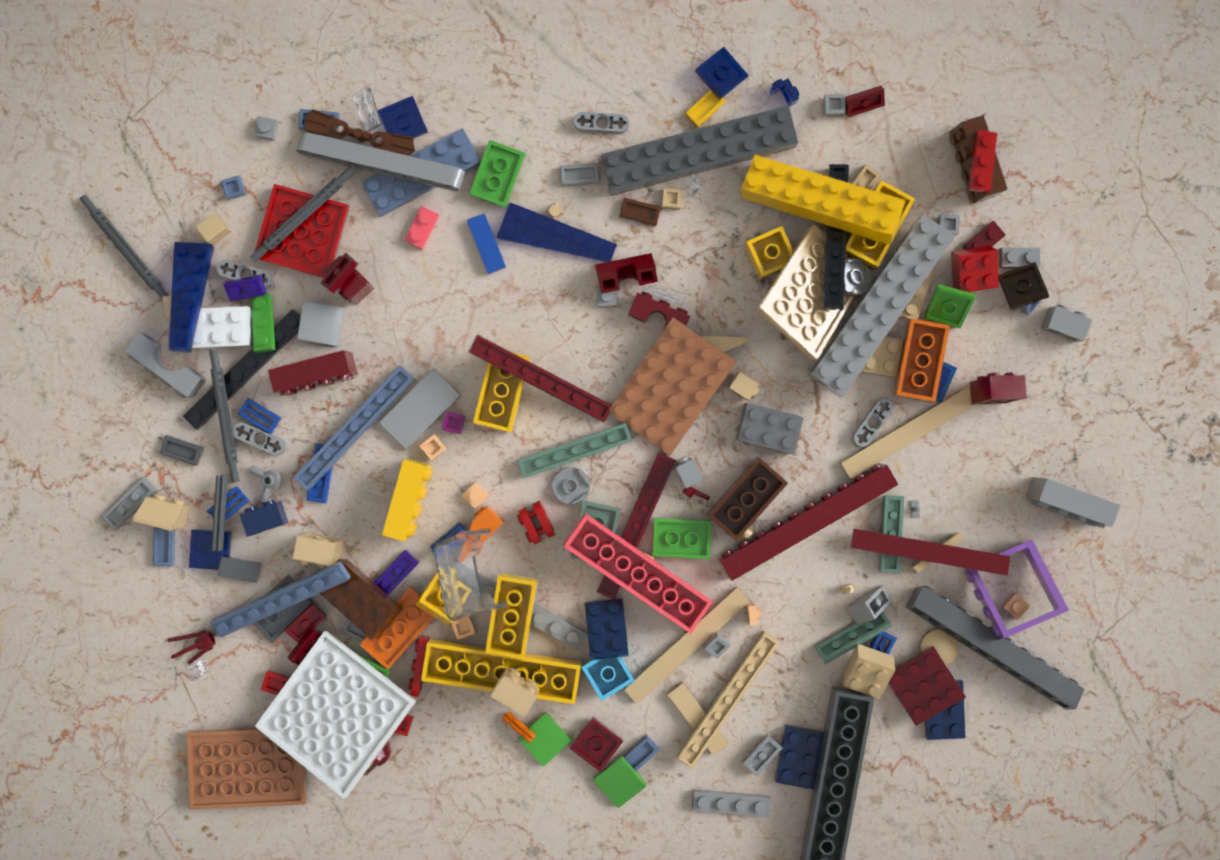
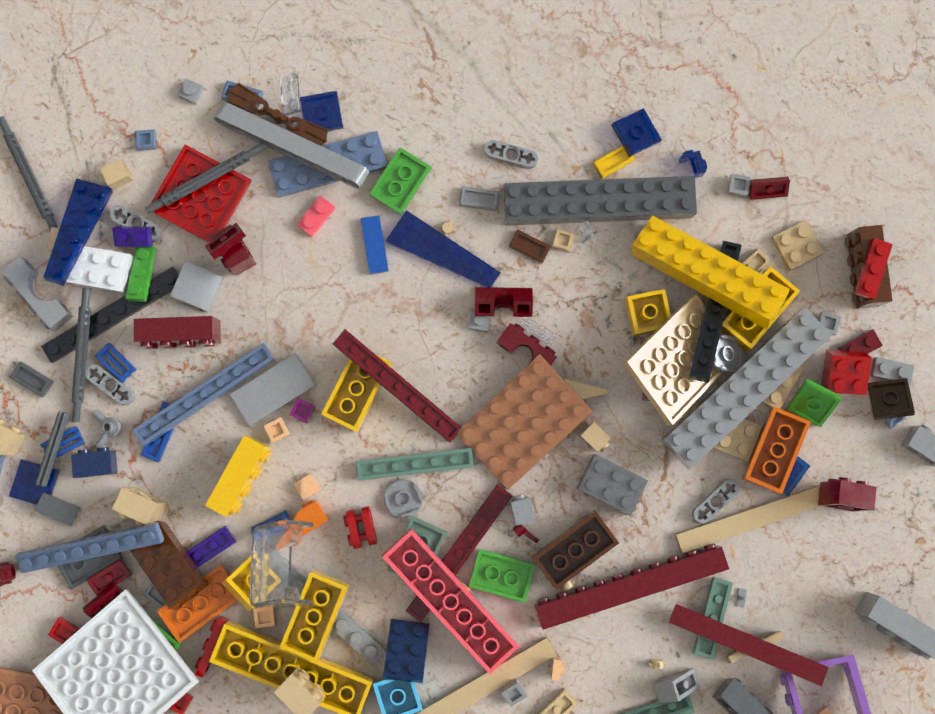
camera: 10 degrees right, 5 degrees down
(903, 152) = (797, 245): none -> tan plate

